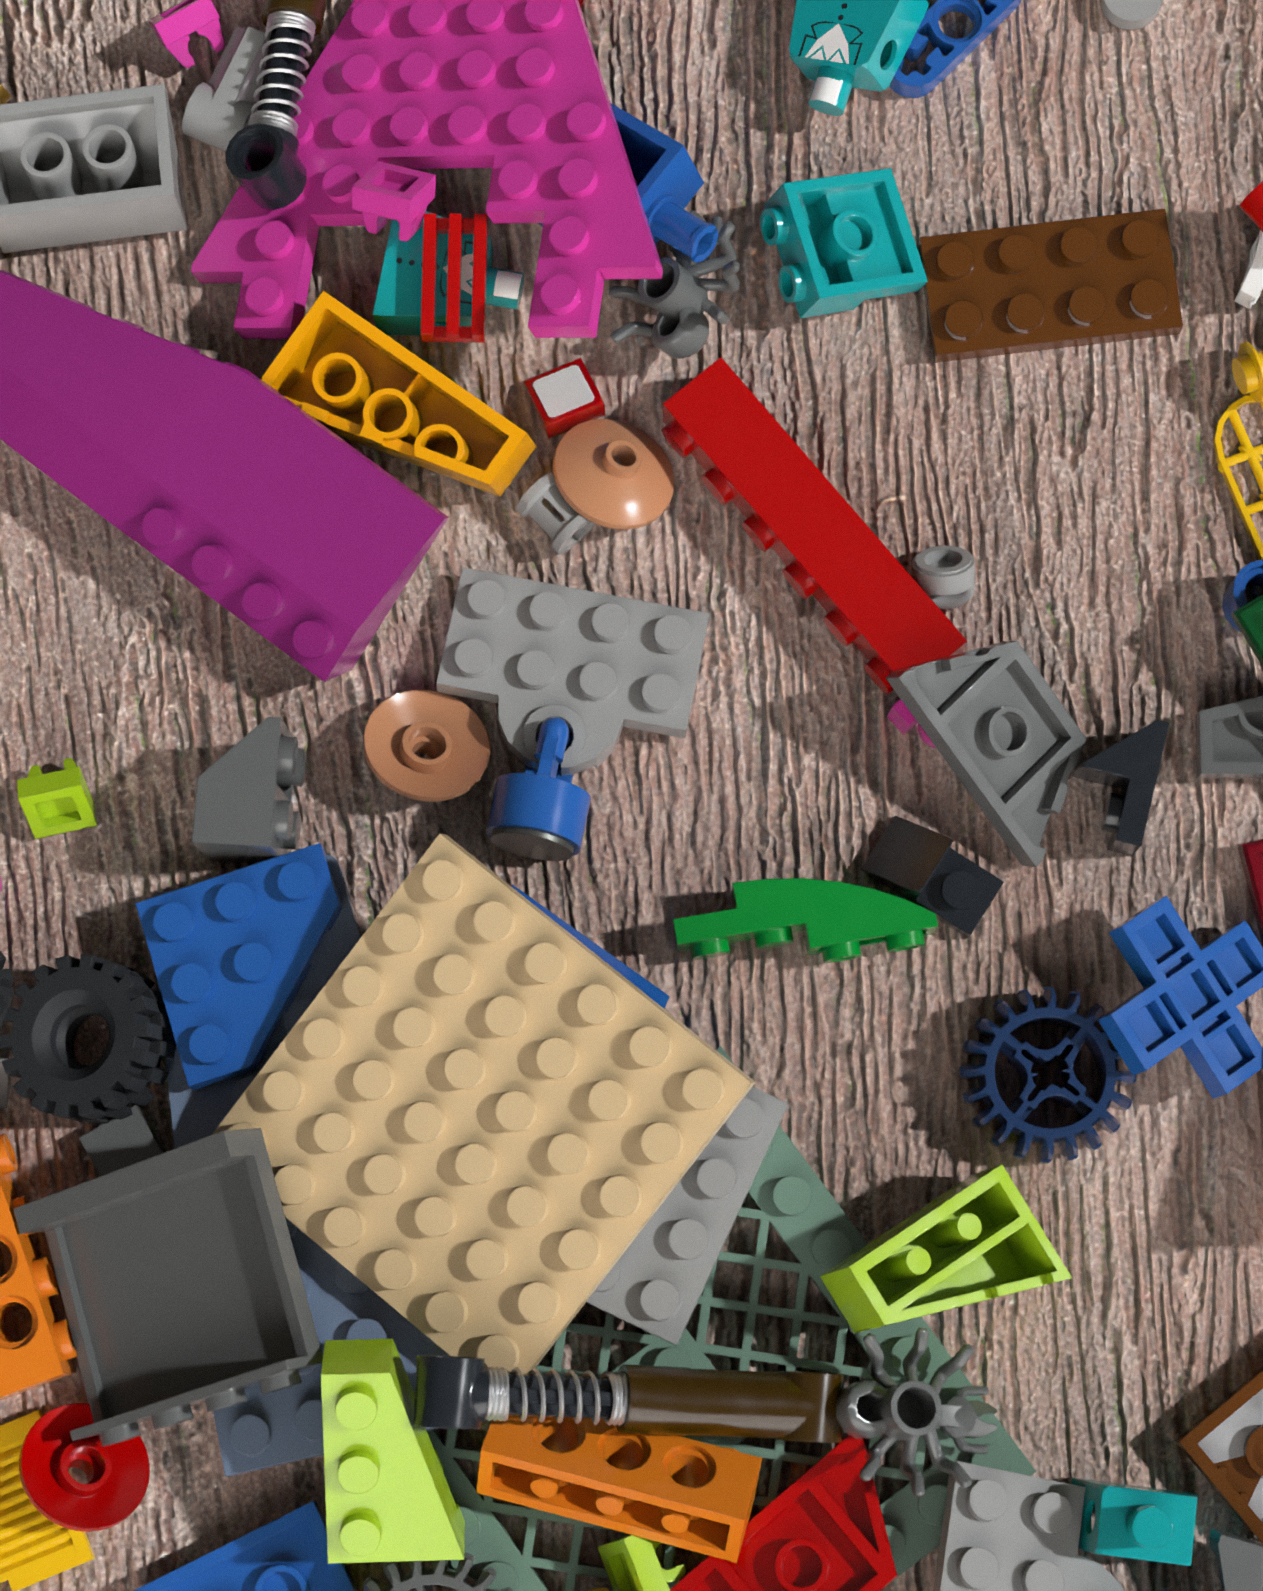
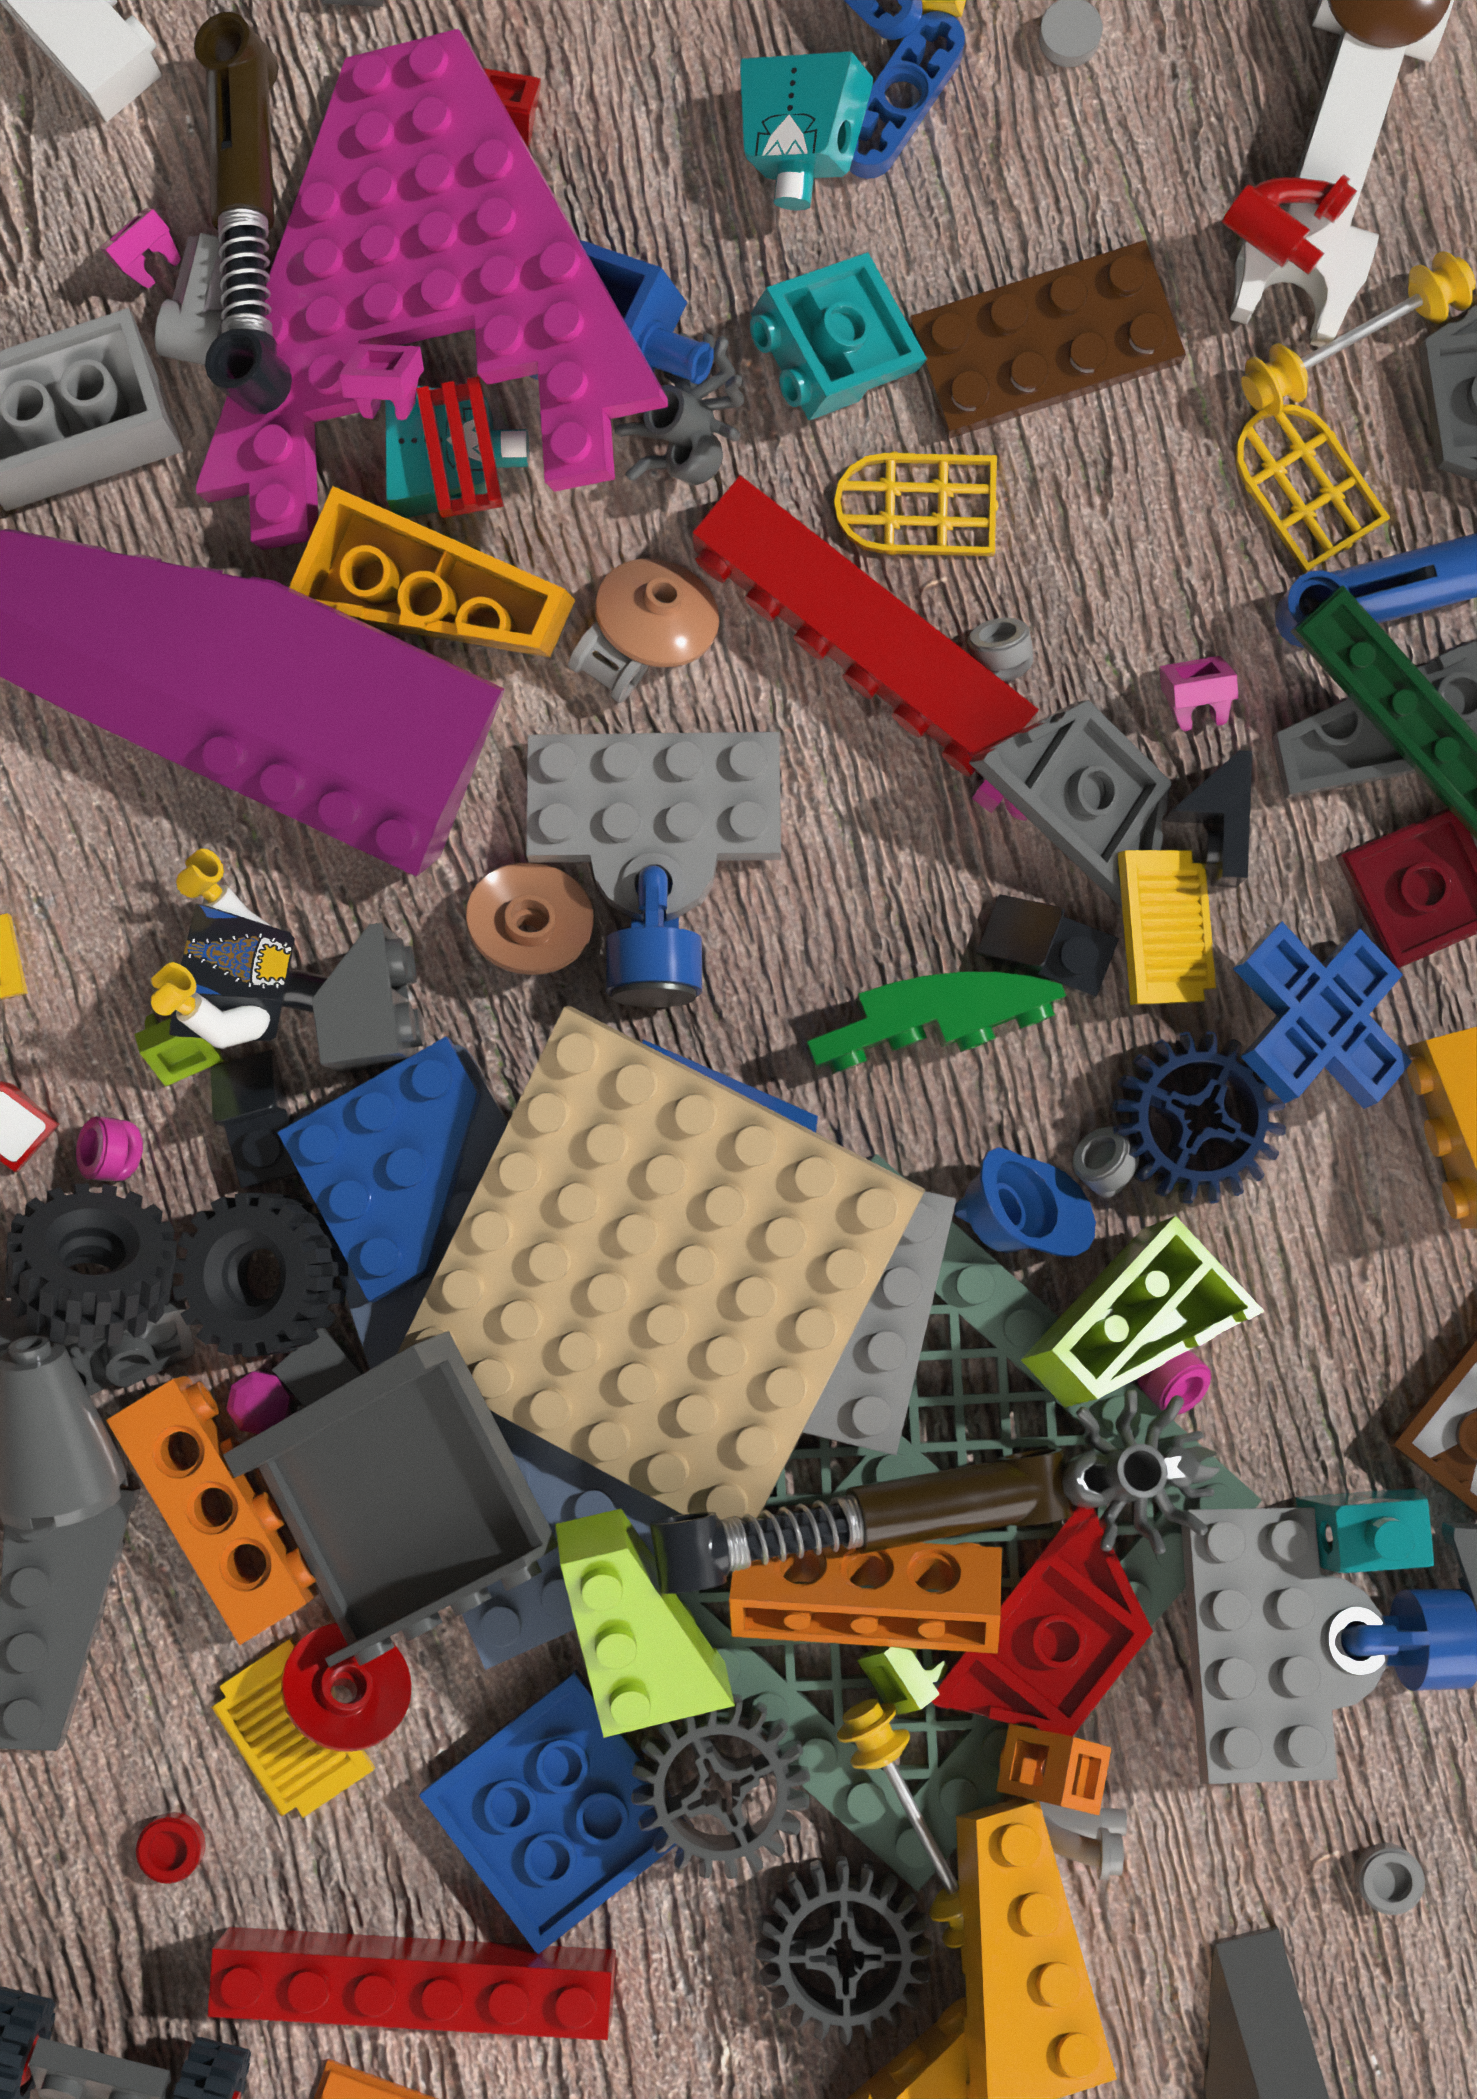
camera: 10 degrees left, 5 degrees up
(59, 1165) = (259, 1401): none -> dark pink tile
(115, 876) = (253, 1108): none -> black slope
(126, 735) = (231, 968): none -> torso
(565, 397) = (593, 546): slope -> none
(858, 1127) = (1026, 1206): none -> blue piece
(909, 438) = (937, 519): none -> yellow window
(945, 1100) = (1105, 1161): none -> light grey tile
(973, 1325) = (1179, 1376): none -> dark pink tile
(1053, 880) = (1166, 926): none -> yellow window
(1131, 647) = (1197, 684): none -> dark pink tile

